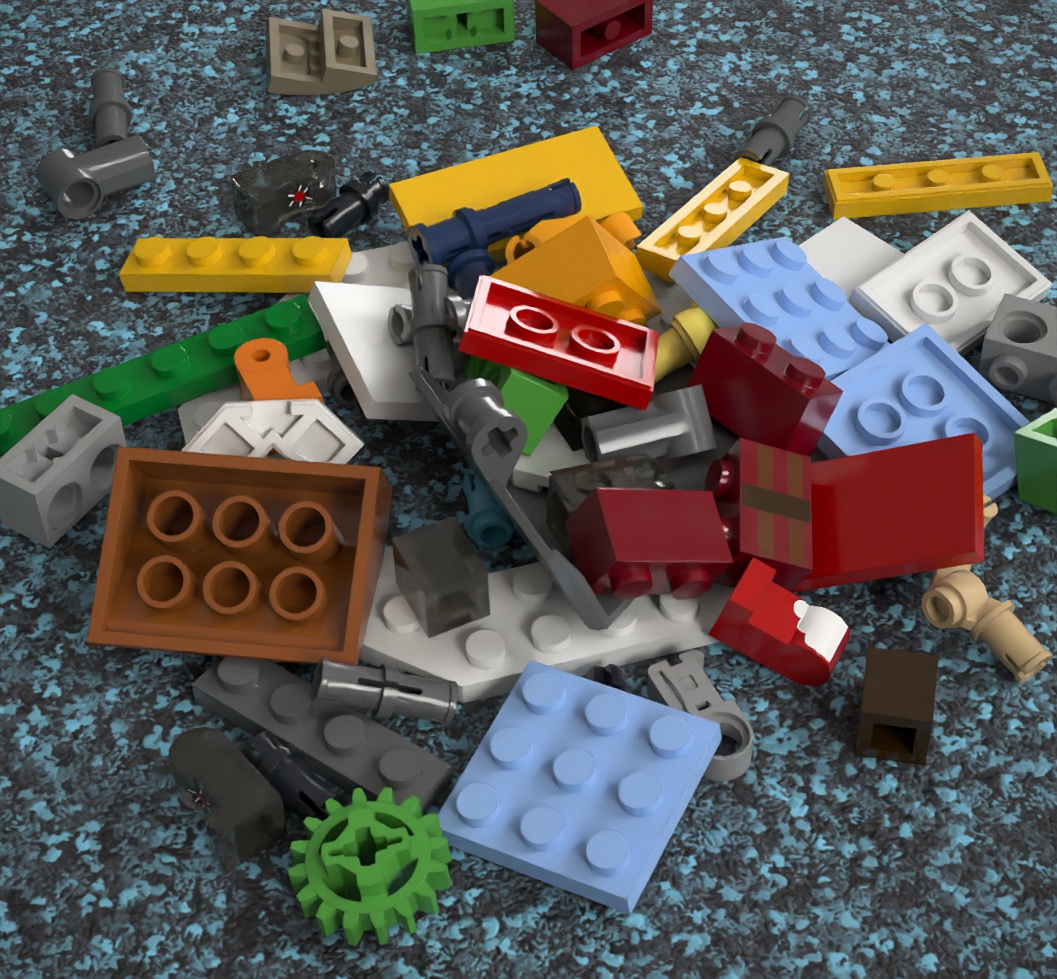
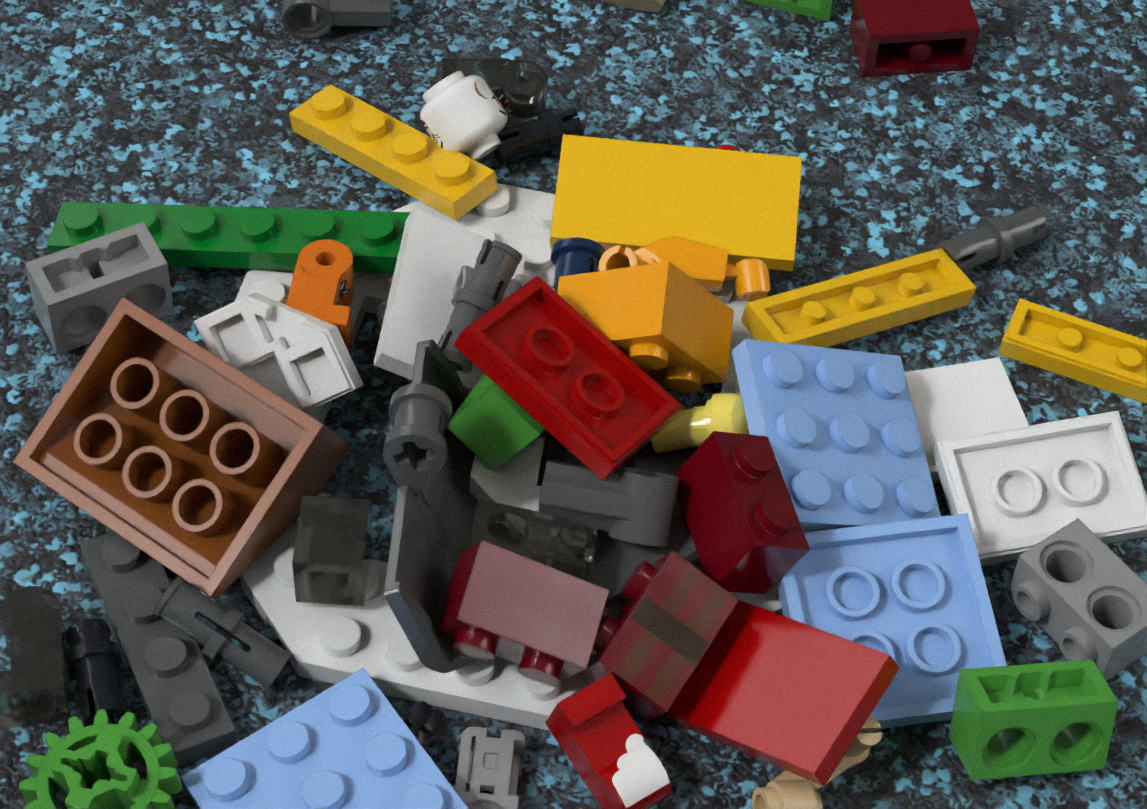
camera: 25 degrees right, 5 degrees up
(286, 206) = (463, 115): none -> white head
(481, 228) = (606, 219): dark blue pin -> none

